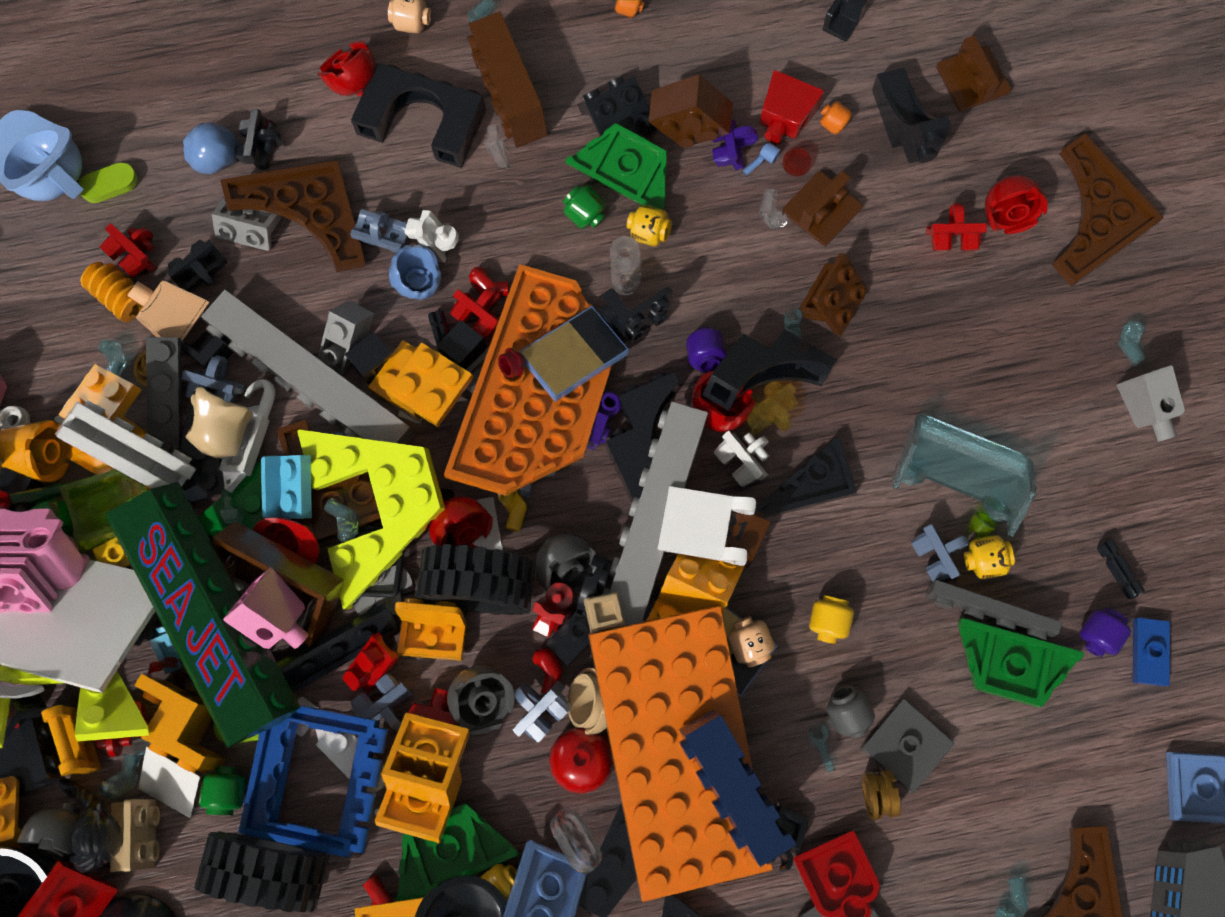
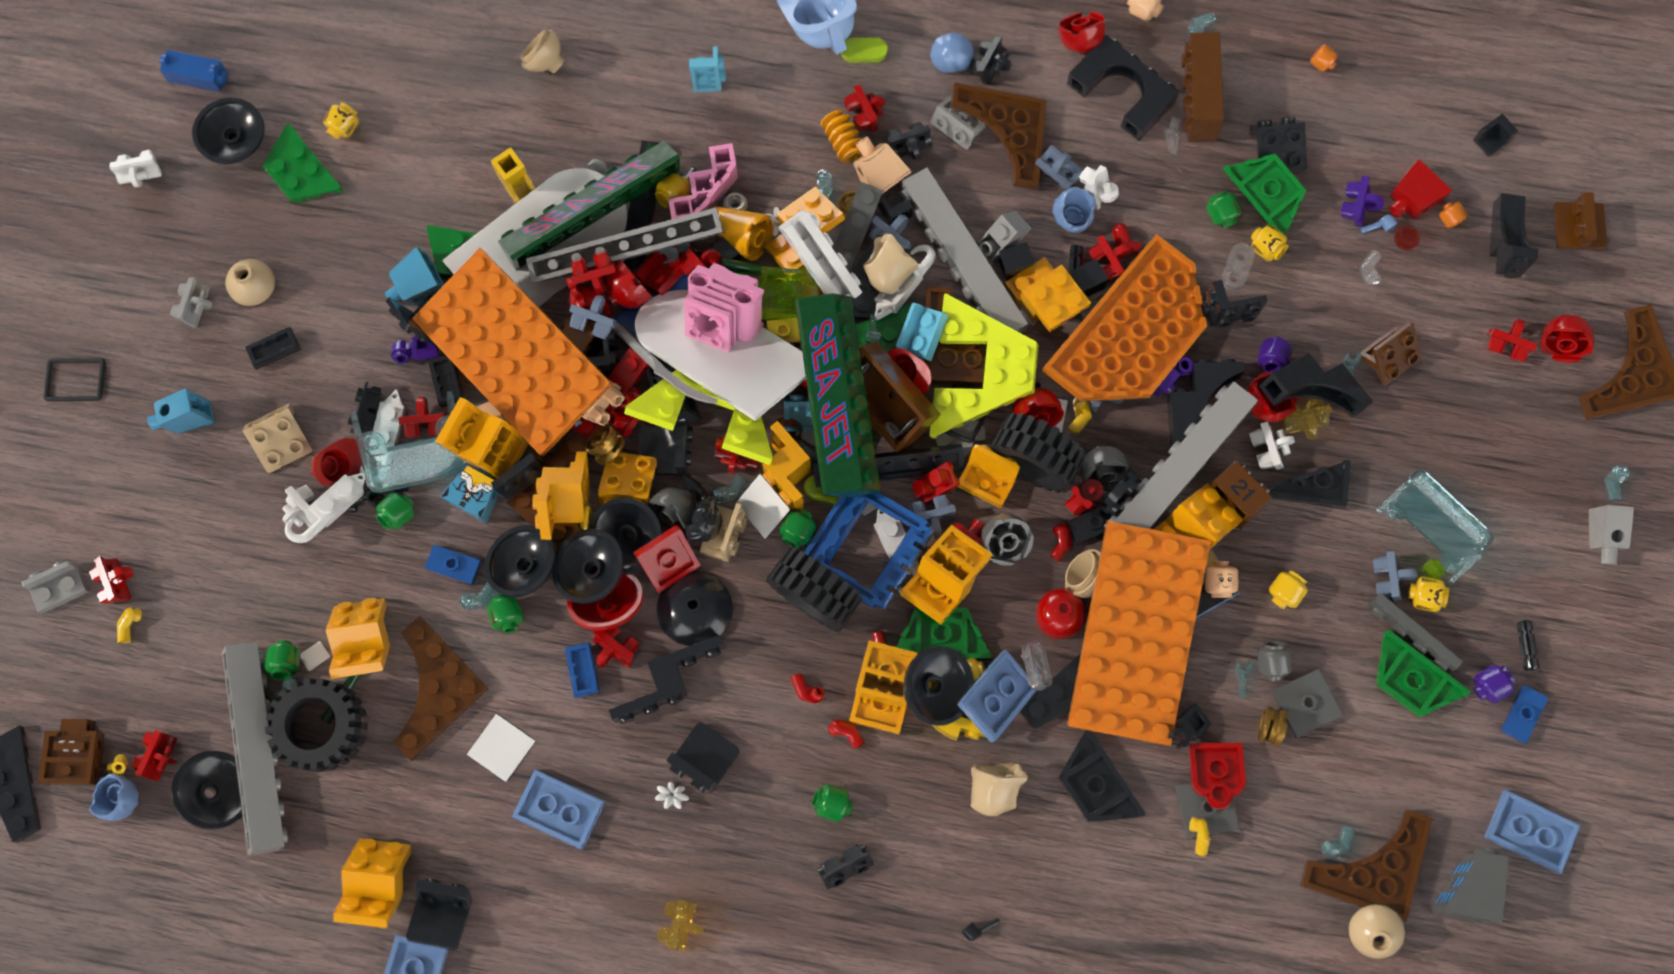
camera: 25 degrees right, 0 degrees up
(74, 755) = (706, 448): light orange plate -> none
(268, 612) = (883, 414): bright pink torso -> none
(346, 519) = (956, 371): clear light blue arm -> none
(511, 363) = (1123, 306): dark red plate -> none
(552, 701) = (1036, 571): hips -> none
(573, 353) = (1172, 317): tile -> none
(604, 612) = (1124, 510): tan tile -> none
(690, 111) = (1338, 167): reddish brown brick -> none
(699, 523) = (1219, 477): white flag -> none
(735, 788) = (1169, 669): dark blue wedge -> none
(823, 207) = (1413, 281): reddish brown bracket -> none

